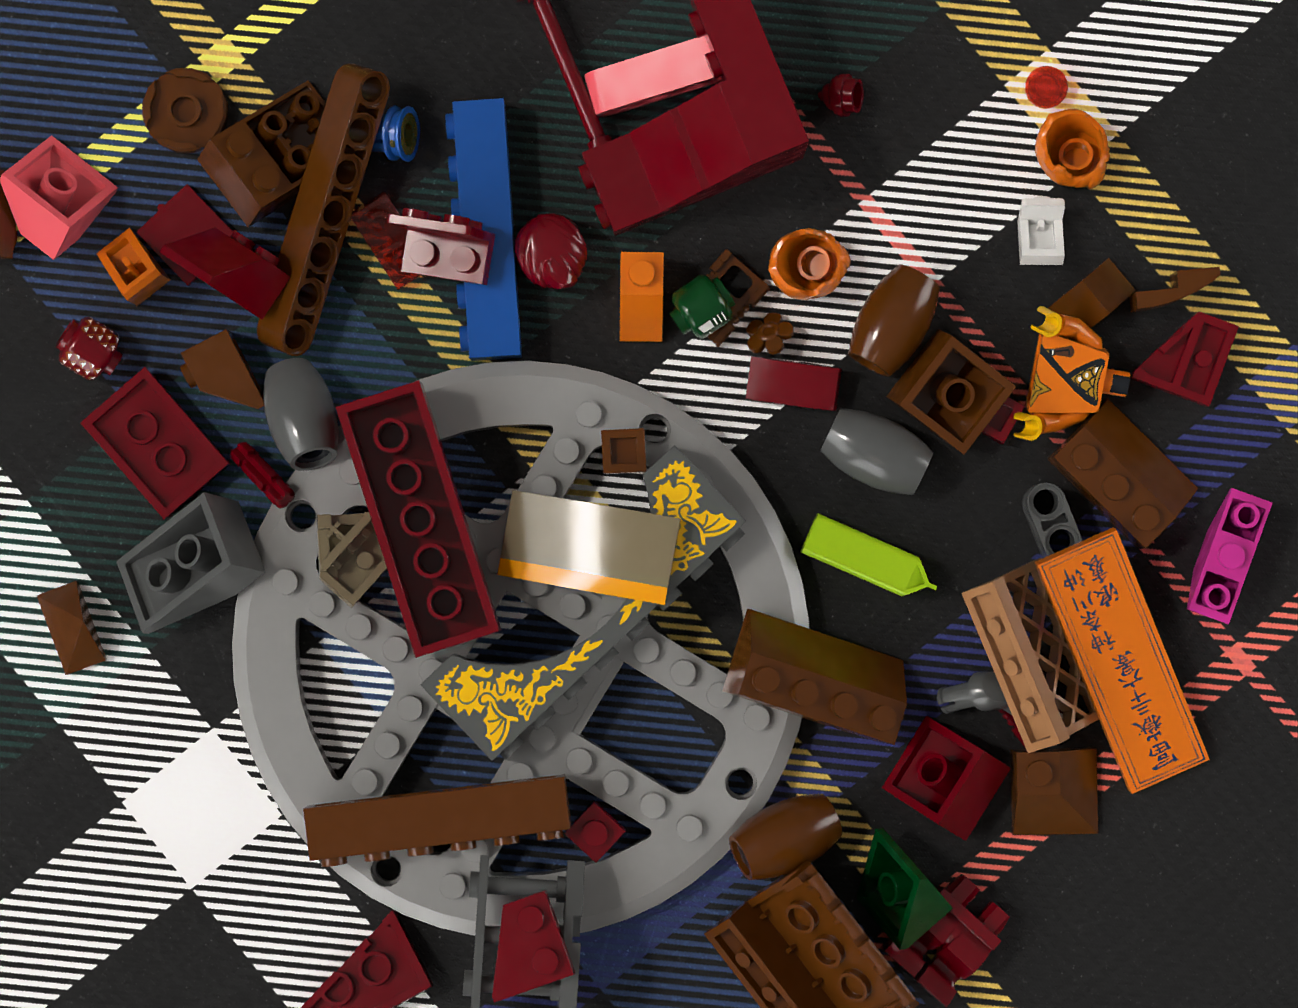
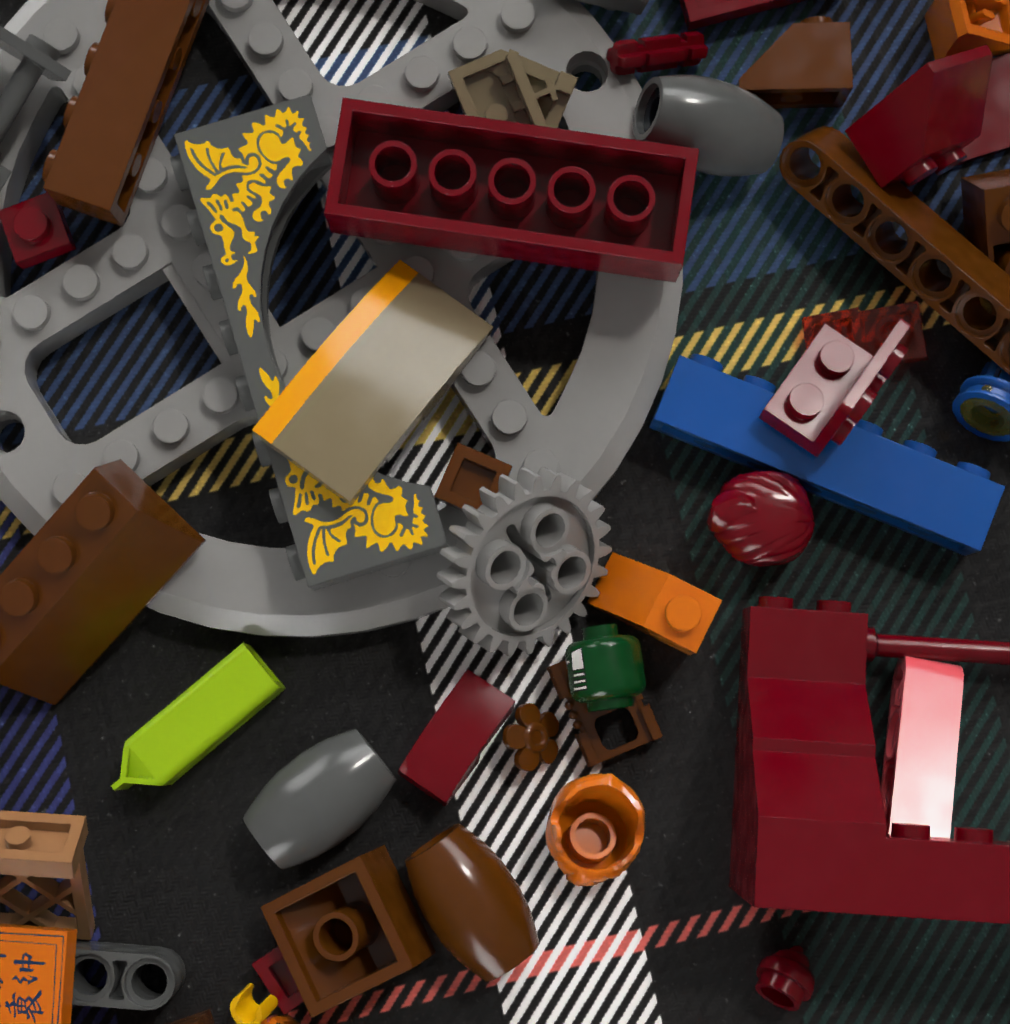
camera: 120 degrees right, 5 degrees down
(682, 406) = (491, 577): none -> light grey gear

